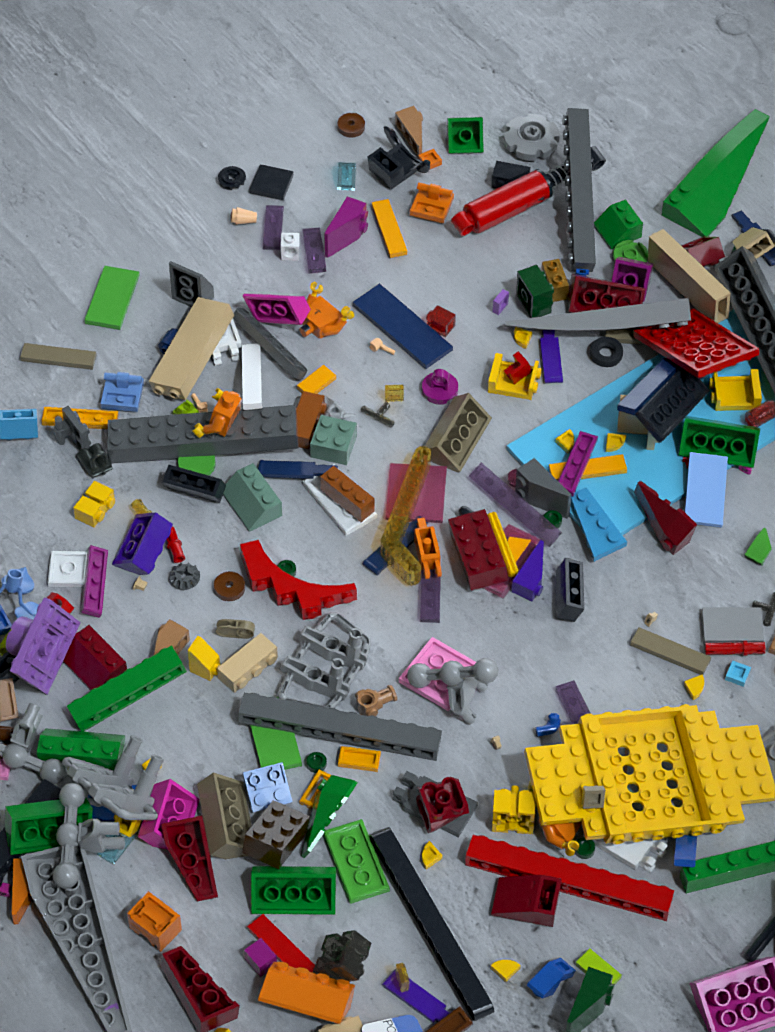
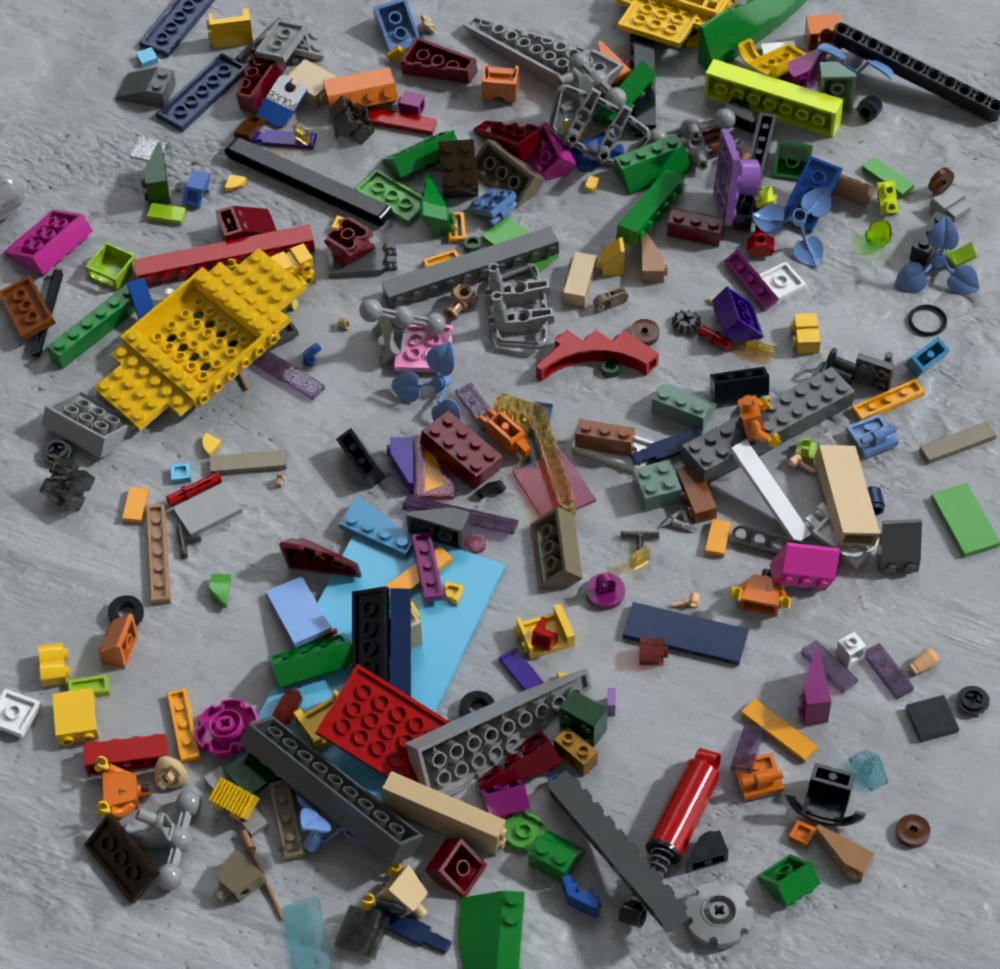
camera: 150 degrees right, 0 degrees up
(426, 219) = (747, 749): none -> clear purple tile
(451, 625) = (443, 361): none -> medium blue plant
(511, 566) = (445, 469): yellow axle -> none
(593, 797) = (229, 274): dark tan tile -> none
(620, 188) = (583, 901): none -> blue slope
(690, 929) = (111, 266): none -> lime piece

